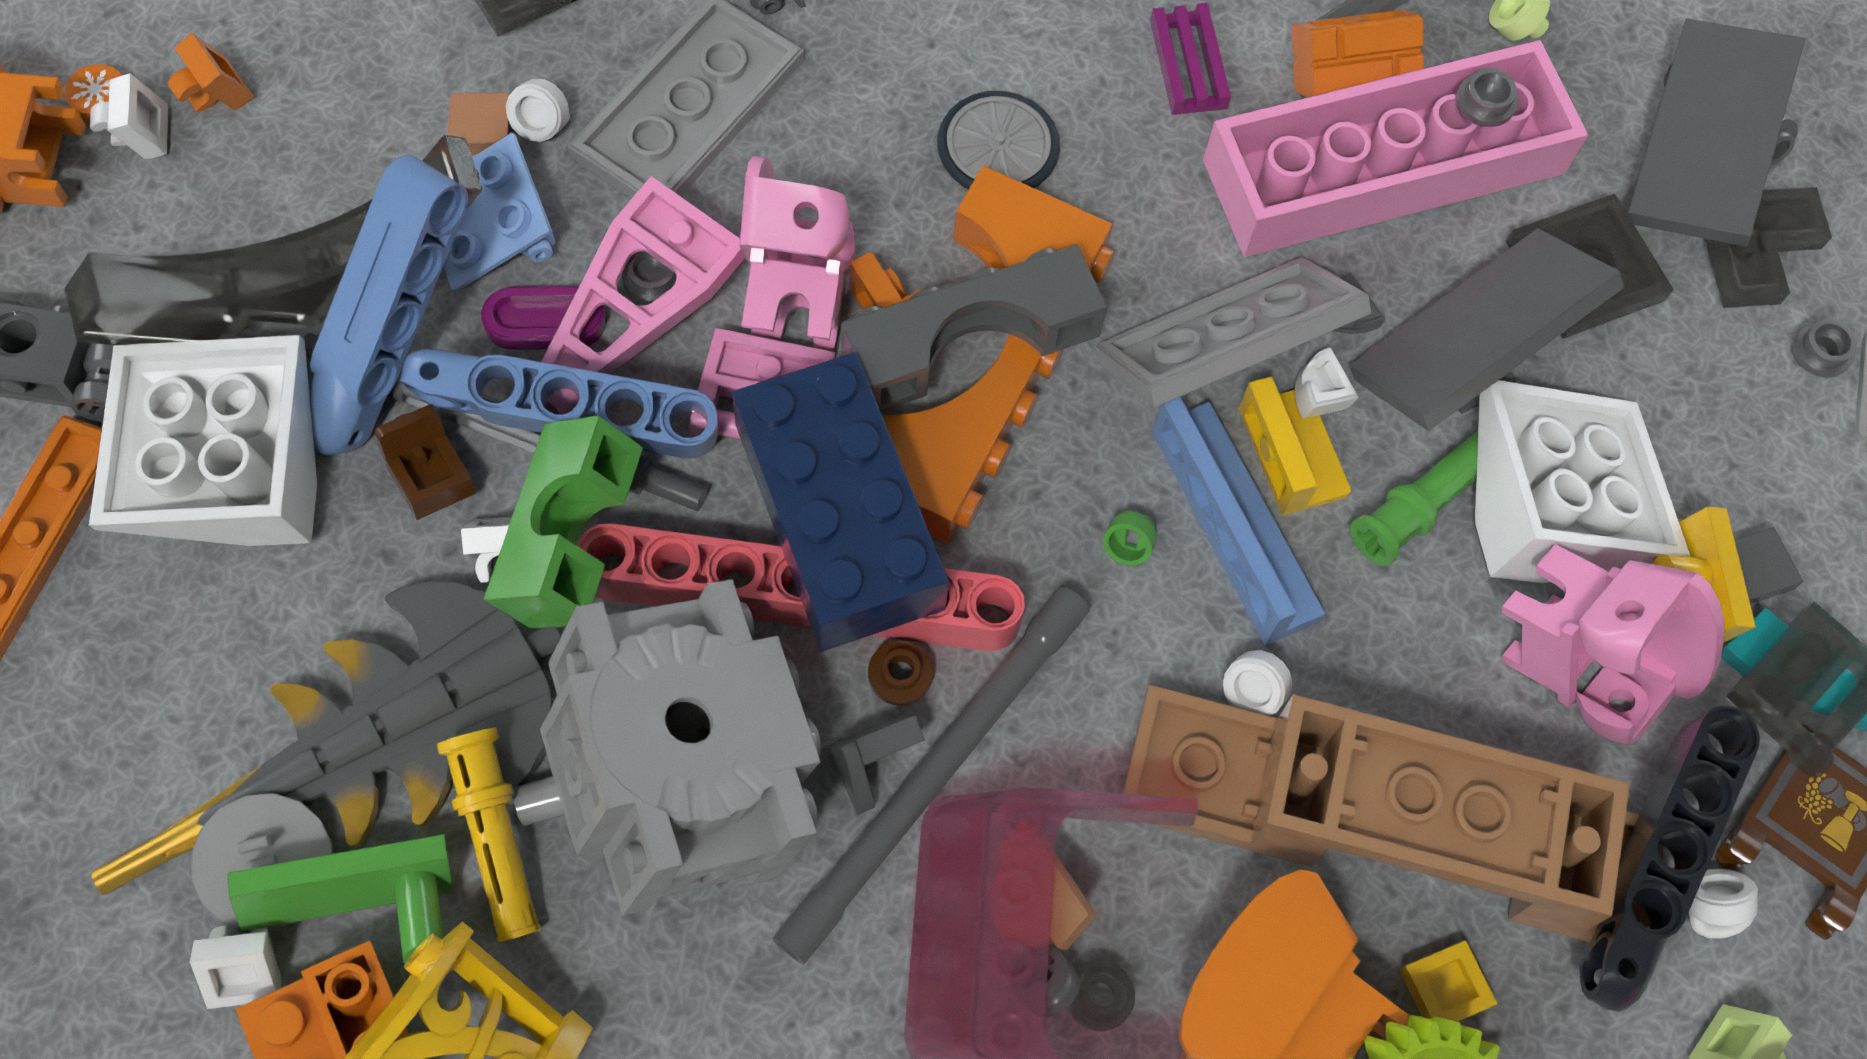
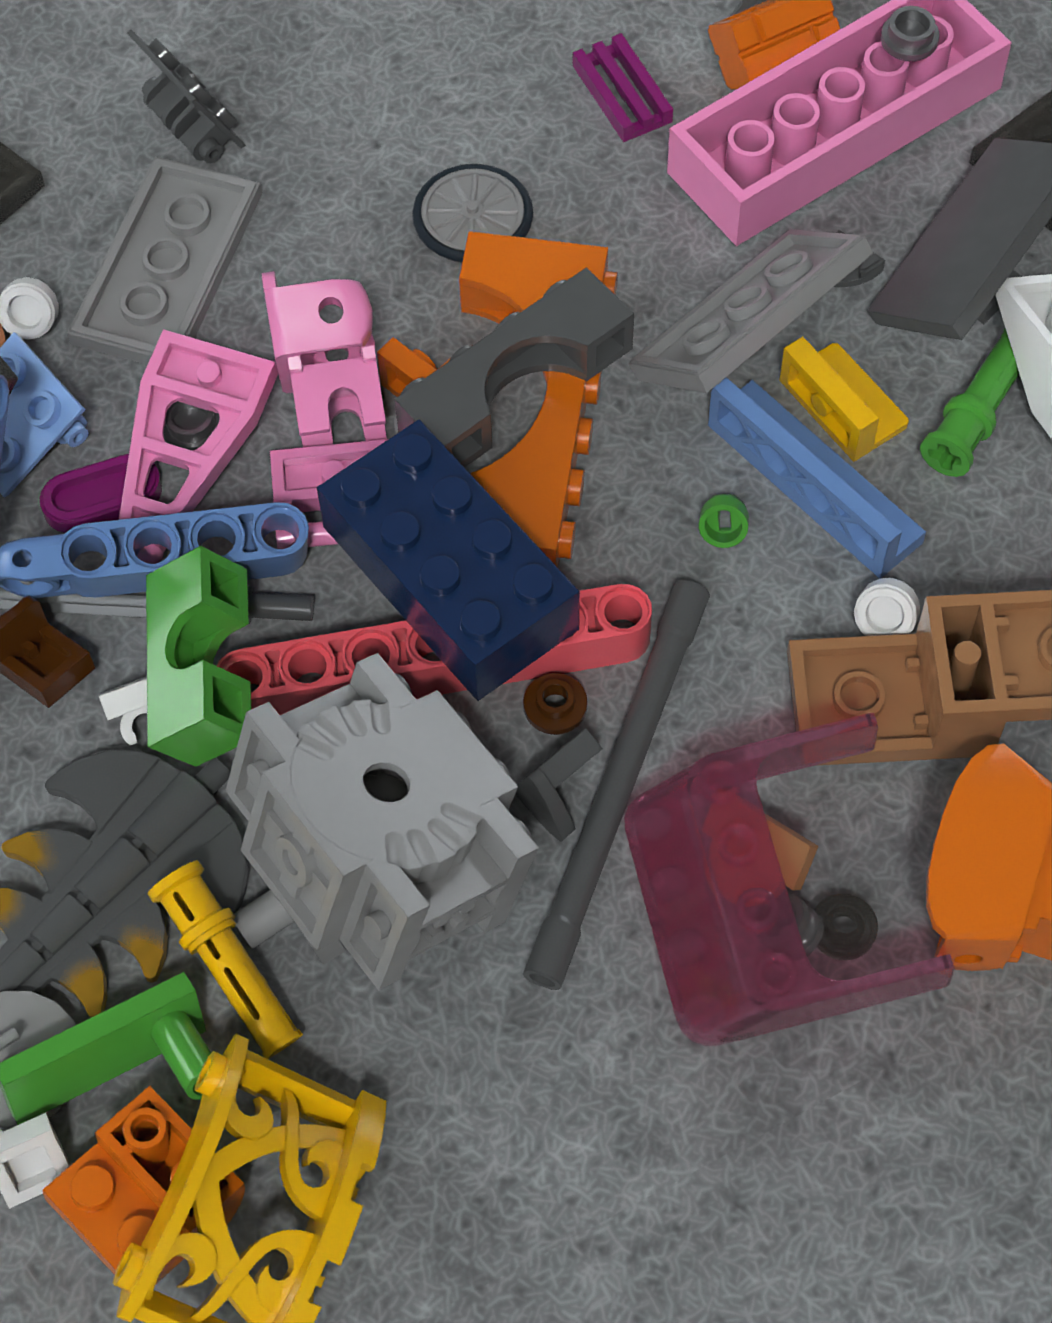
camera: 10 degrees left, 5 degrees down
(1323, 386) = (851, 336): white tile -> none

